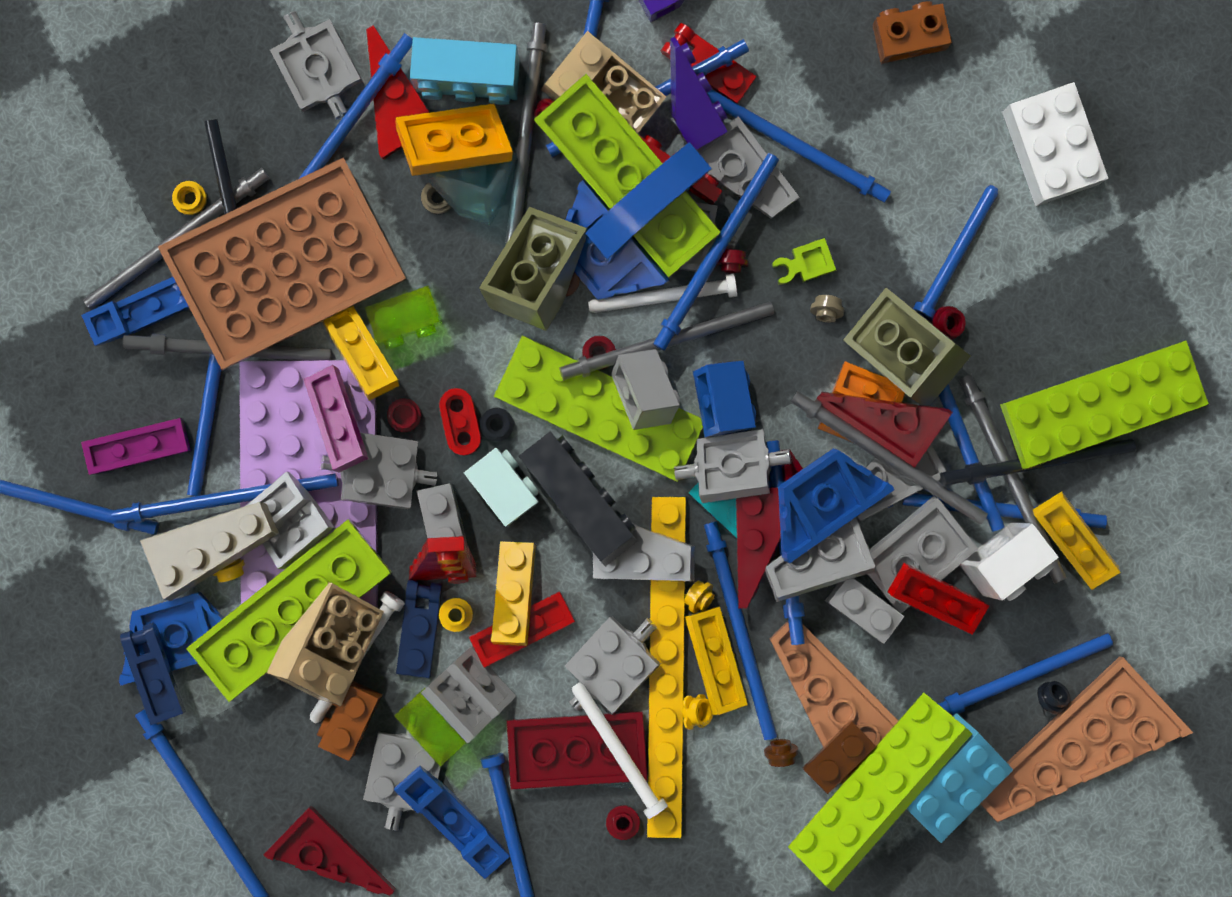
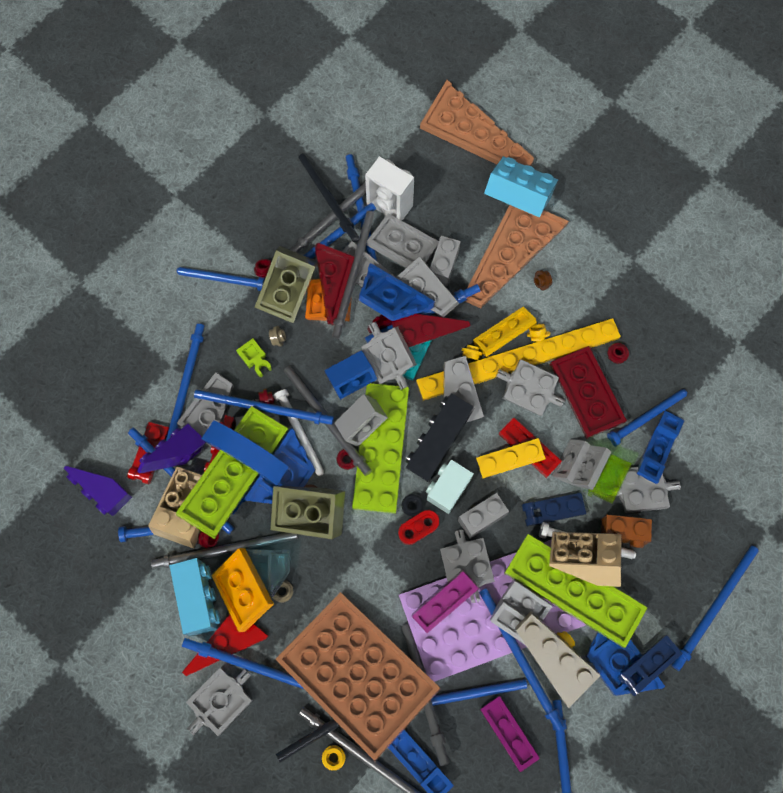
camera: 110 degrees left, 15 degrees down
(319, 847) = (709, 522): dark red wing -> none
(361, 353) = (398, 602): yellow plate -> none
(403, 317) = (365, 585): clear neon green bracket -> none
(404, 415) = (426, 564): dark red plate -> none
(444, 559) = (509, 497): red wing -> none
(463, 606) = (536, 496): yellow plate -> none
(653, 805) = (602, 335): white bar -> none
(716, 546) = (439, 353): blue bar -> none
(839, 757) = (532, 247): reddish brown plate -> none
(879, 791) = (544, 216): lime plate -> none
(911, 32) = (97, 341): dark orange brick -> none
(938, 598) = (424, 223): red plate -> none
(956, 703) = (477, 199): blue bar -> none
(1053, 697) = (455, 152): black plate -> none
(1055, 144) = (142, 243): white brick -> none
(1076, 540) = (356, 172): yellow plate -> none
(1104, 404) = (284, 174): lime plate -> none

